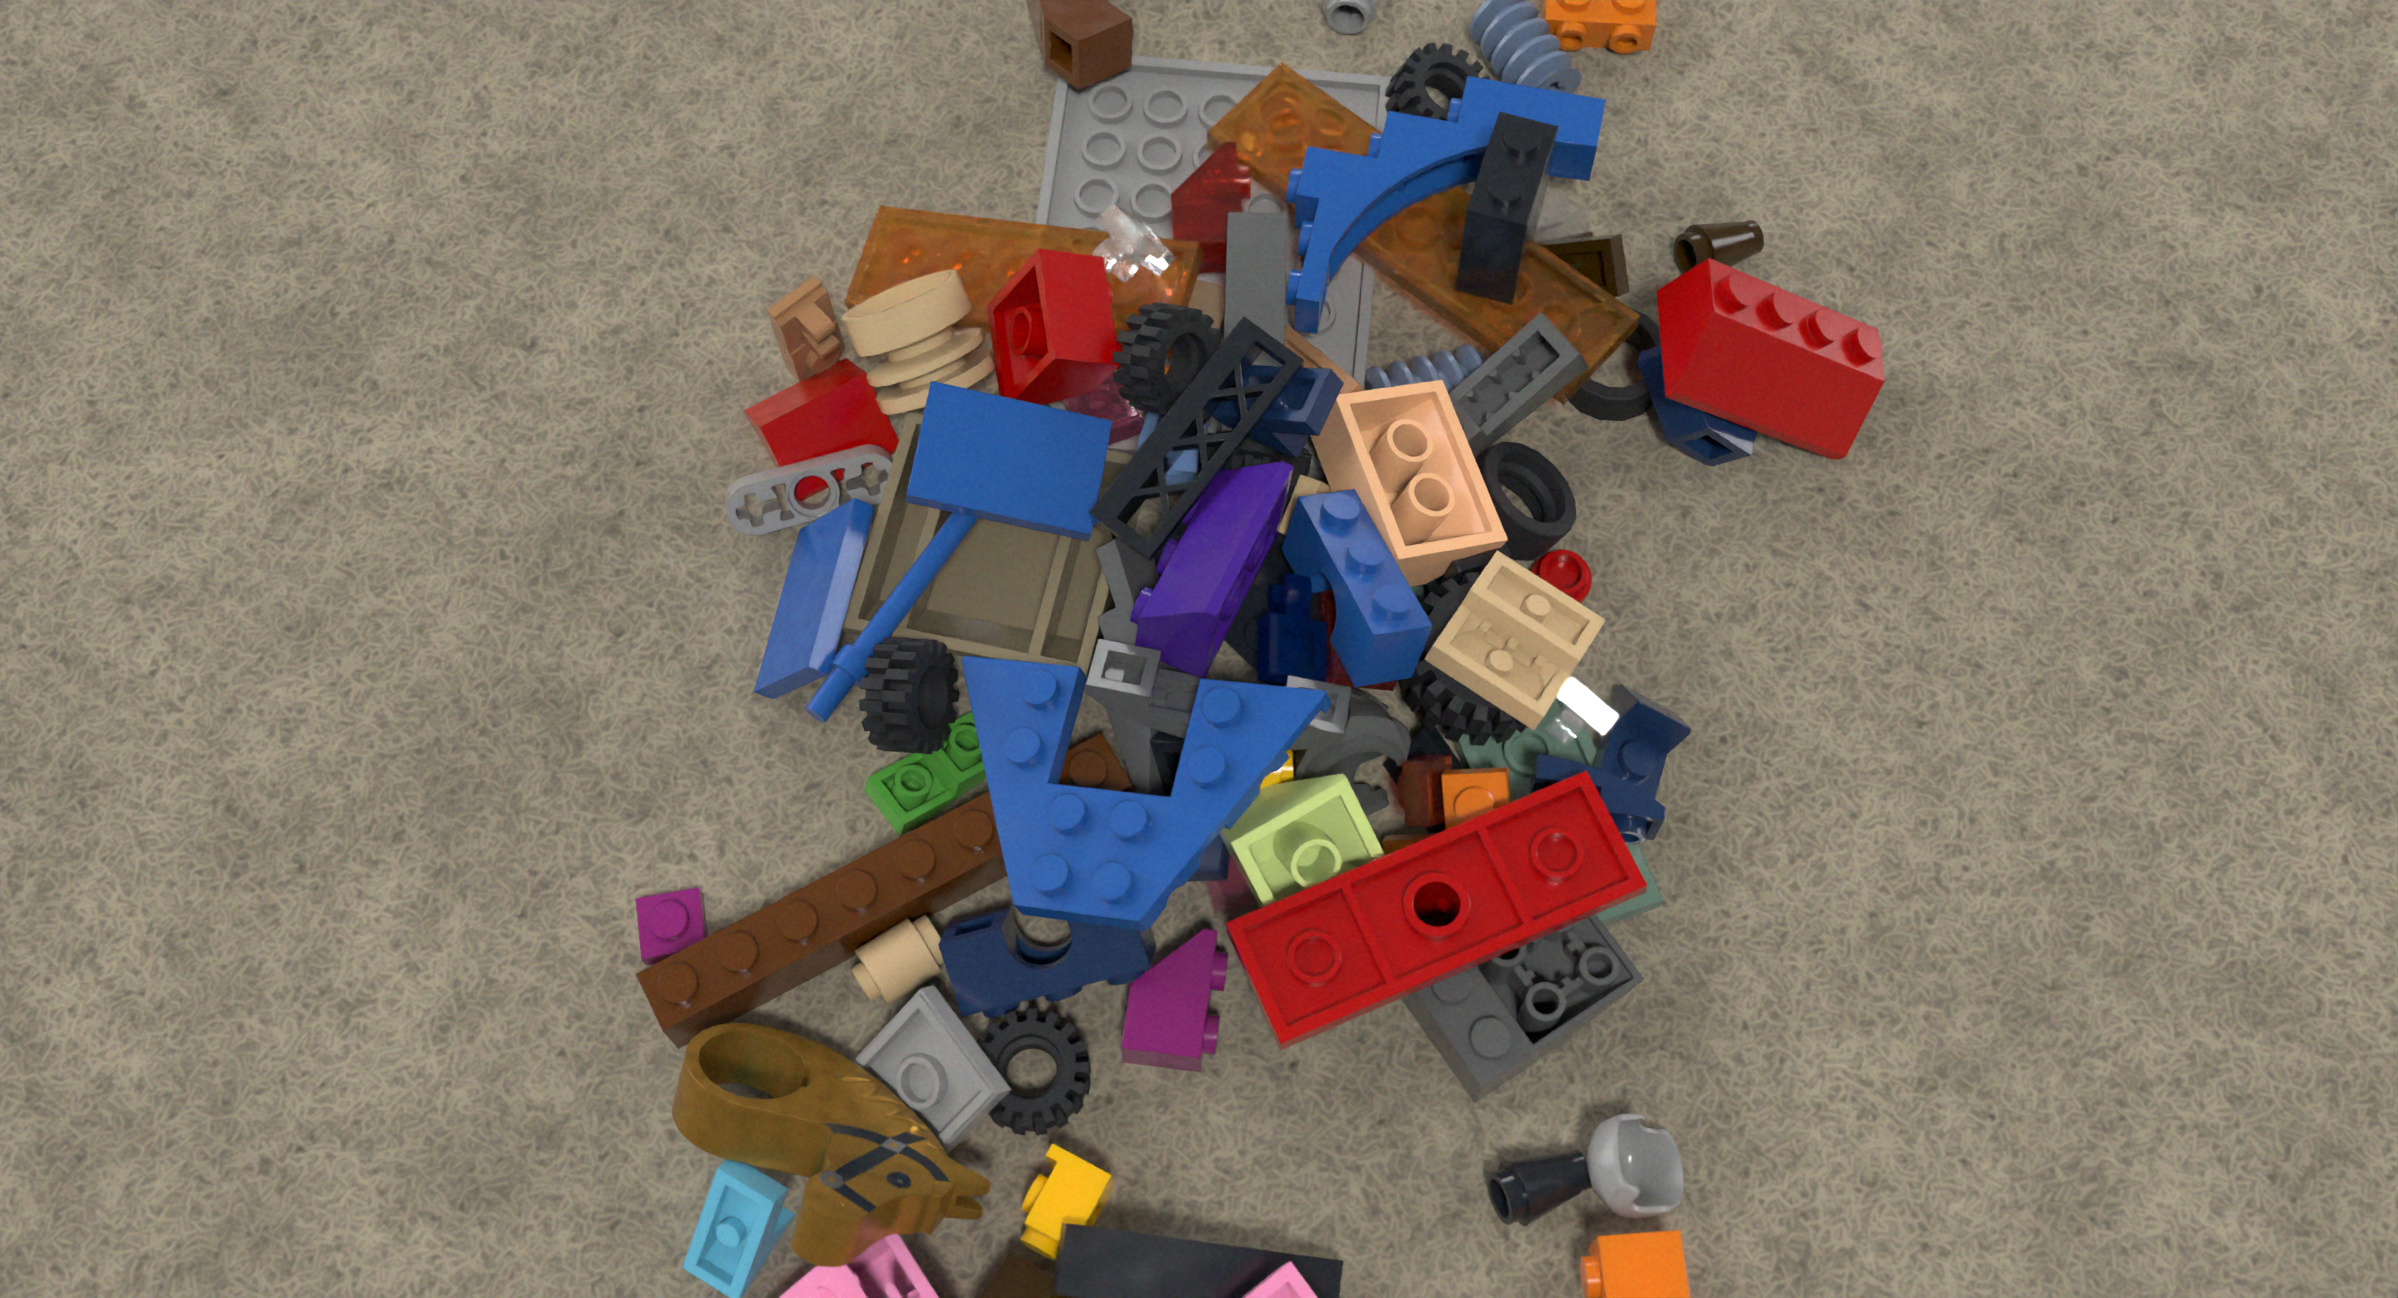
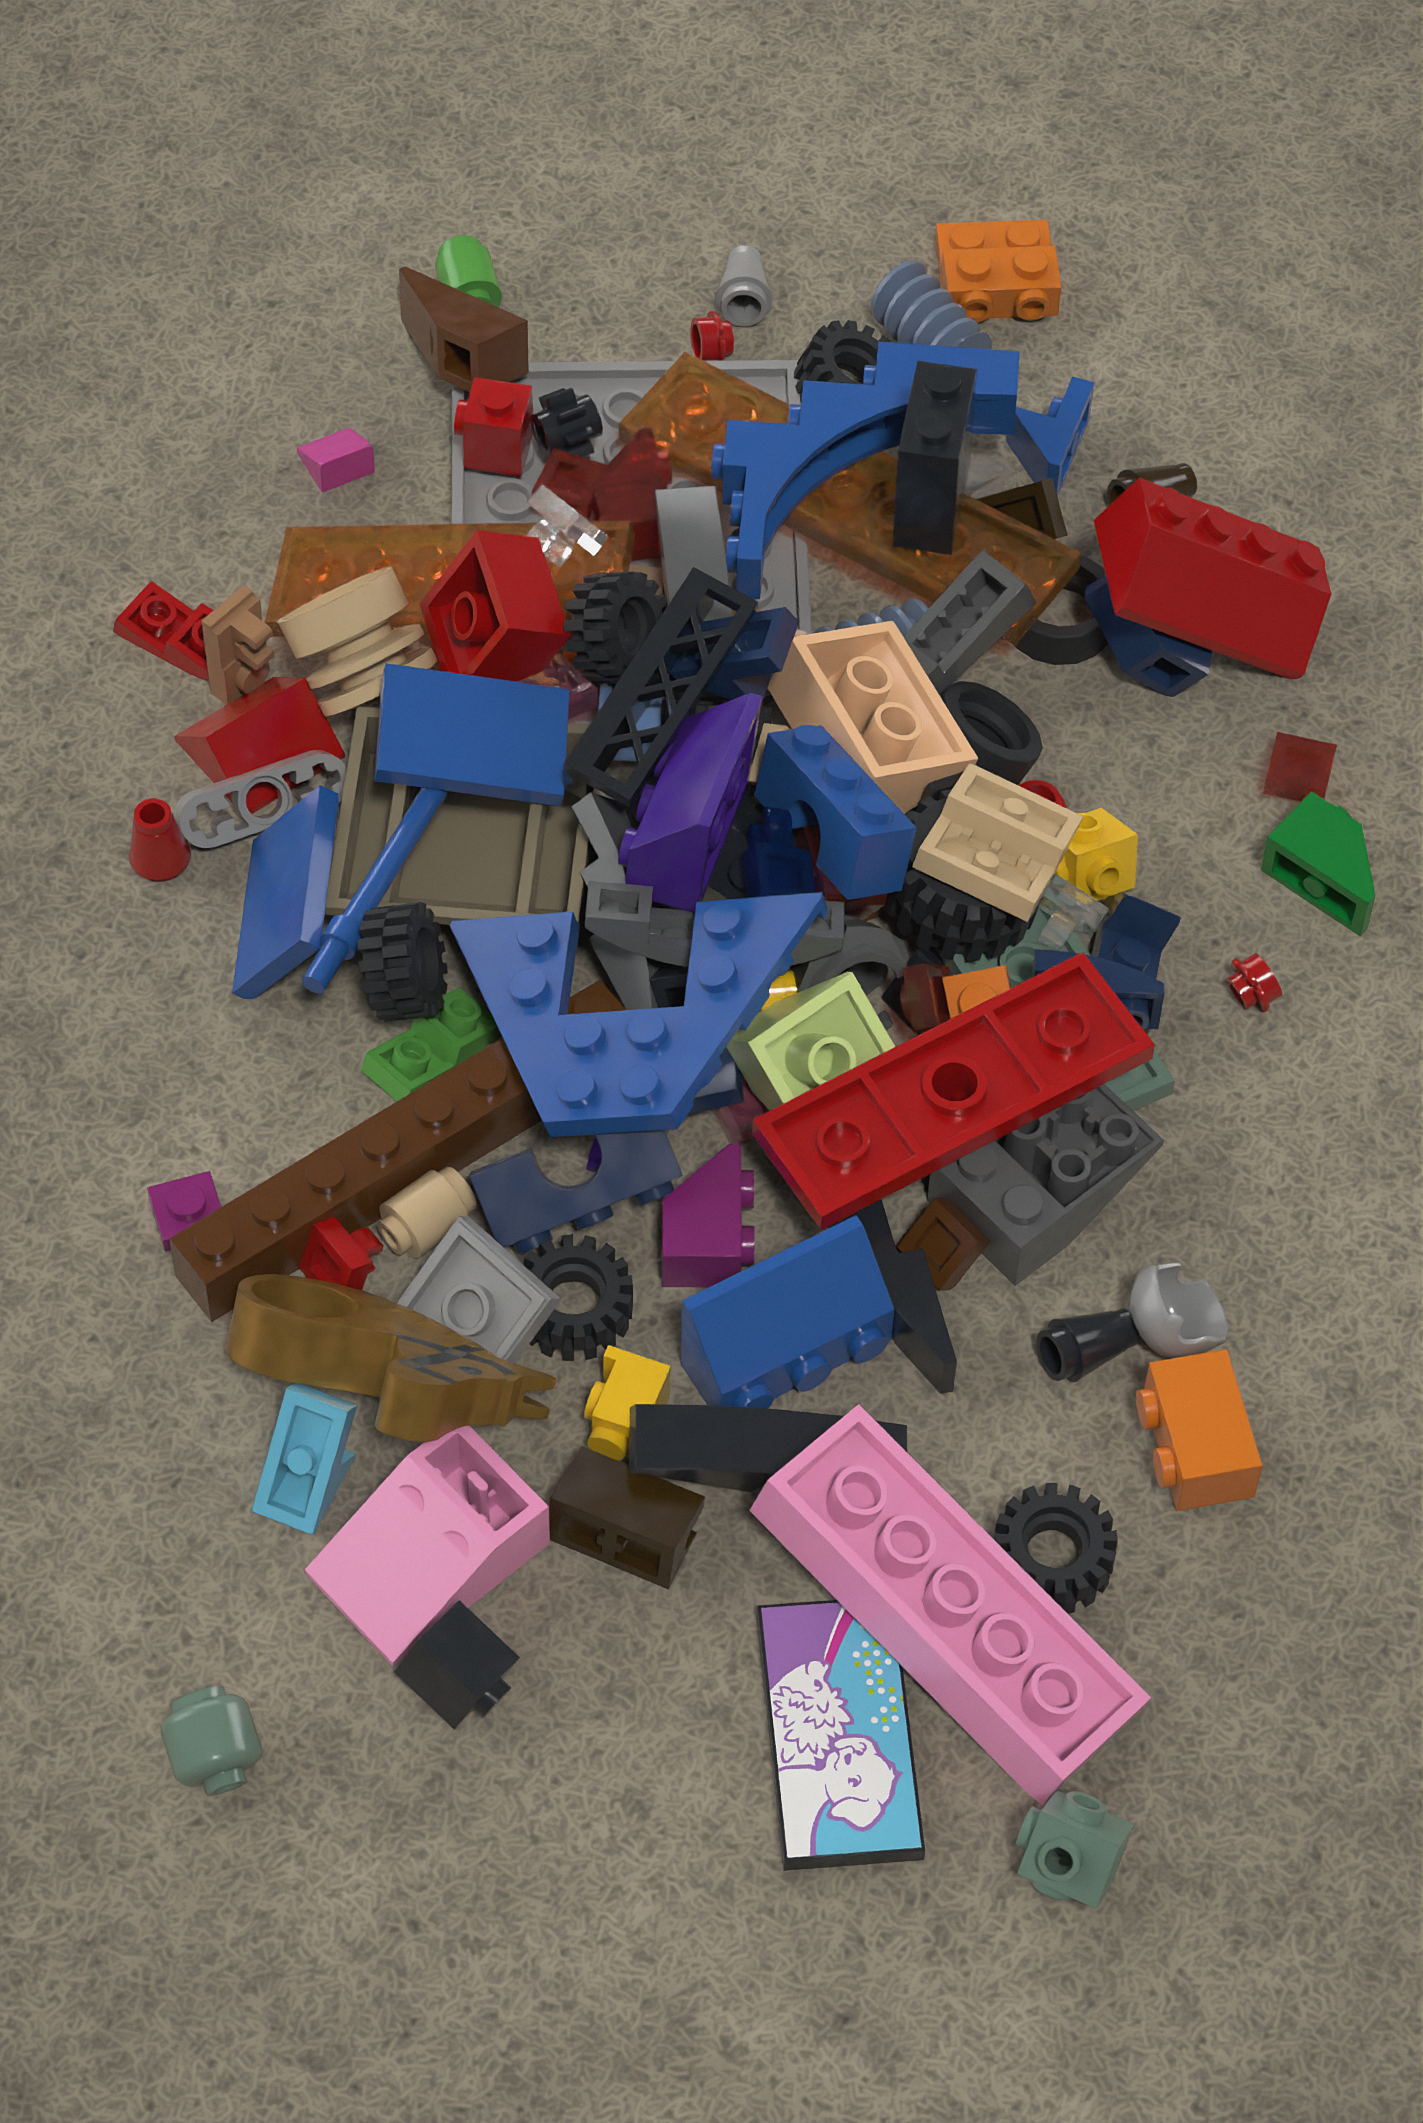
camera: 10 degrees left, 10 degrees down
(703, 528) = (157, 842): none -> red cone
(746, 292) = (166, 629): none -> red slope
(809, 1006) = (339, 1256): none -> red tile
(941, 136) = (337, 459): none -> dark pink slope
(1089, 123) = (495, 426): none -> red brick
(1148, 190) = (571, 479): none -> clear red plate
(1157, 128) = (566, 423): none -> black gear
(1237, 1140) = (787, 1320): none -> blue slope
(1313, 45) = (711, 337): none -> red plate
(1358, 1113) = (918, 1317): none -> black slope
(1407, 1056) = (948, 1242): none -> reddish brown plate
(1622, 646) = (1101, 856): none -> yellow brick
(1624, 186) = (1050, 441): none -> blue slope
(1756, 795) = (1253, 983): none -> red plate
(1830, 562) = (1299, 767): none -> clear red plate
(1844, 669) = (1324, 861): none -> green slope

